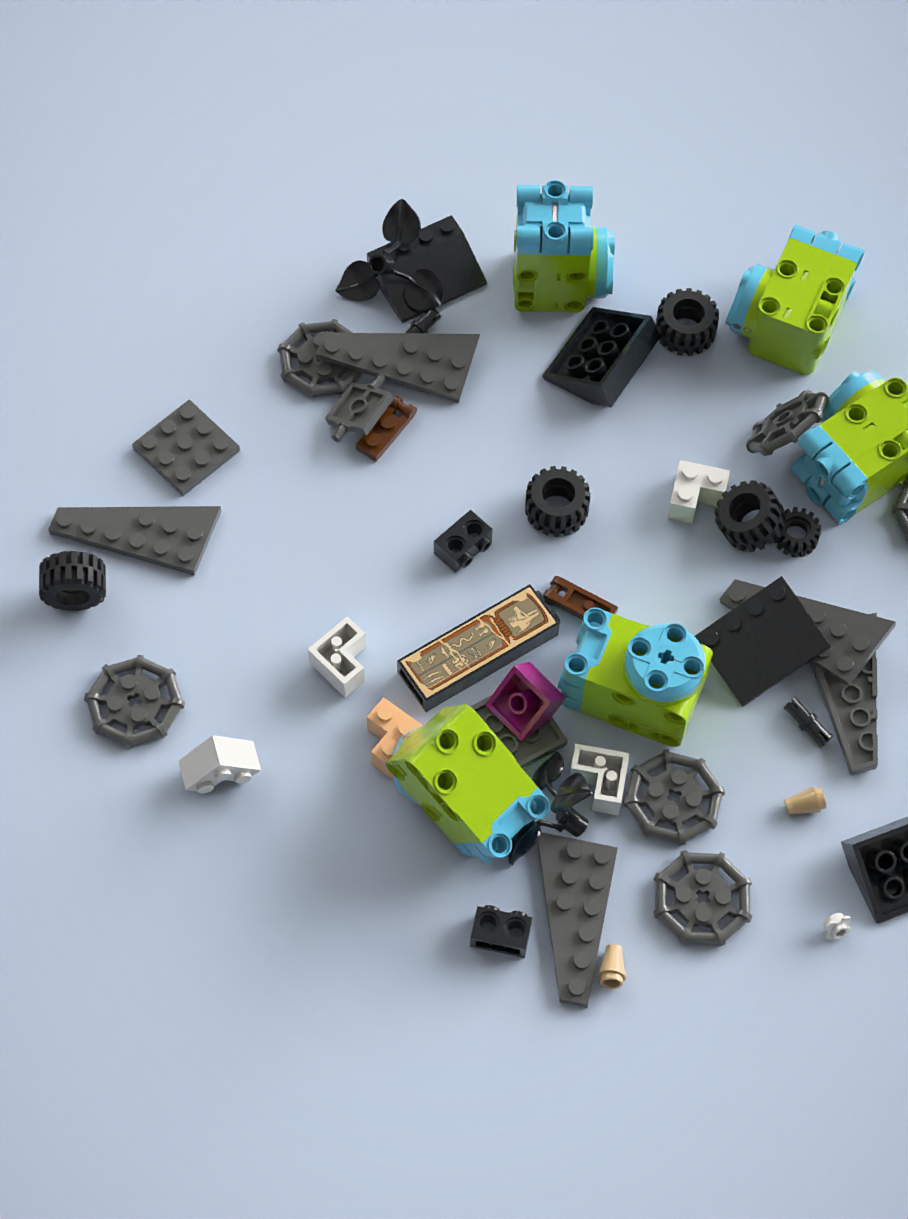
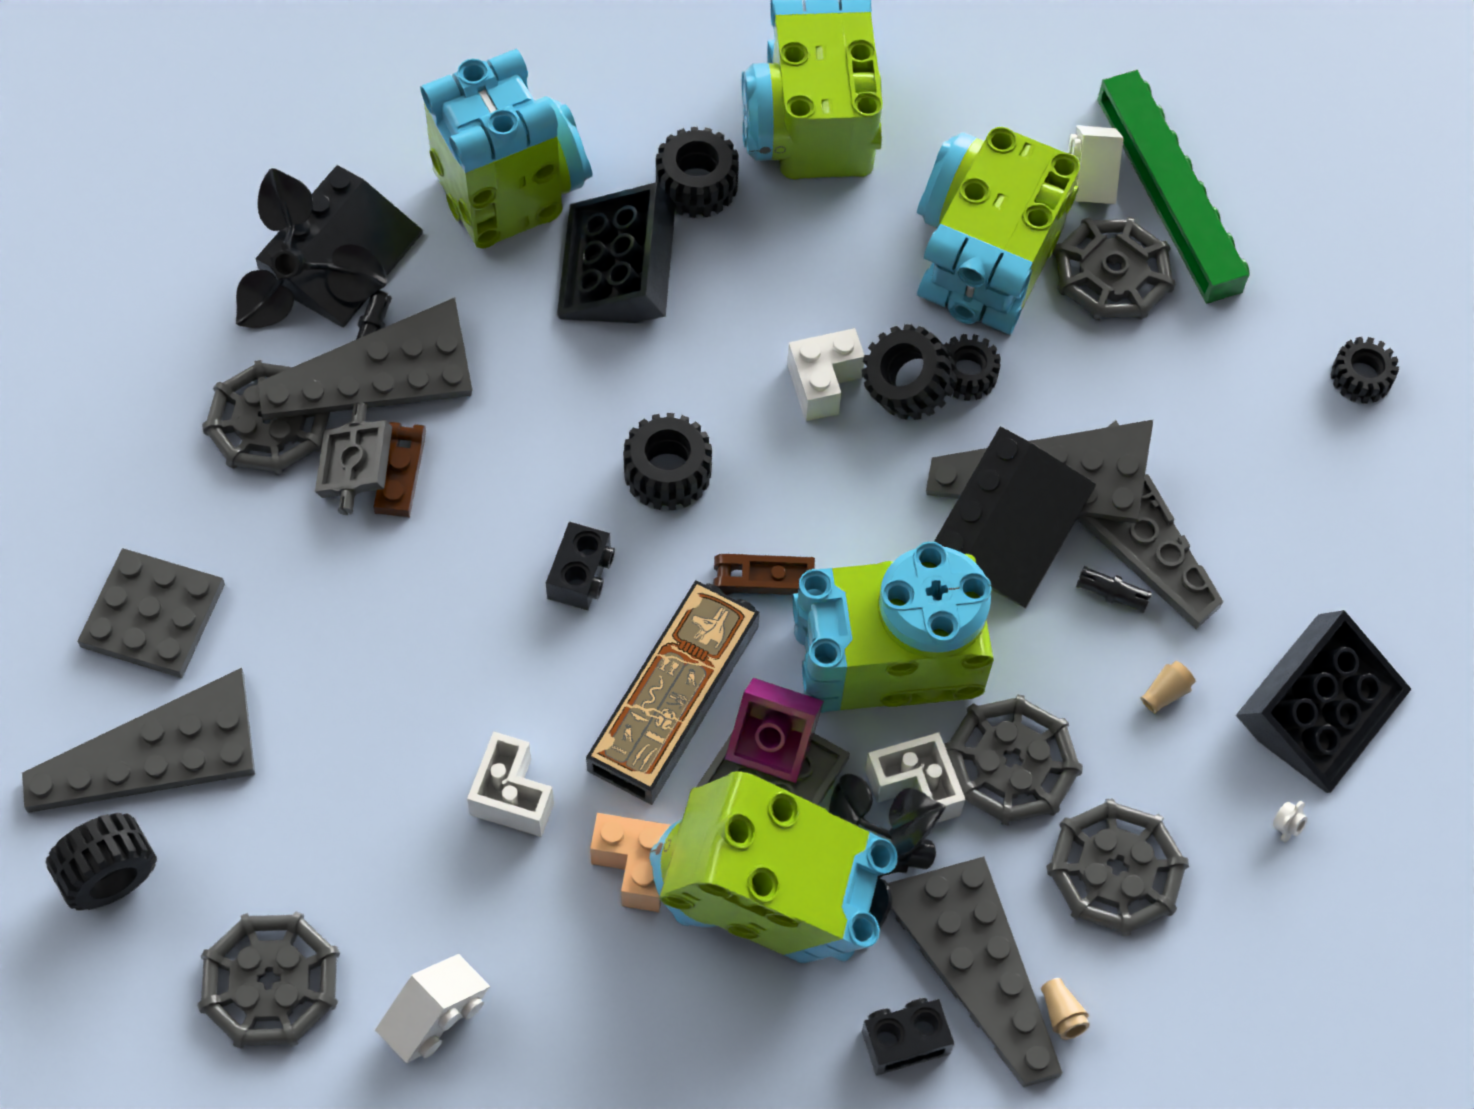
camera: 30 degrees left, 0 degrees up
(787, 422) = (891, 239): dark grey plate -> none

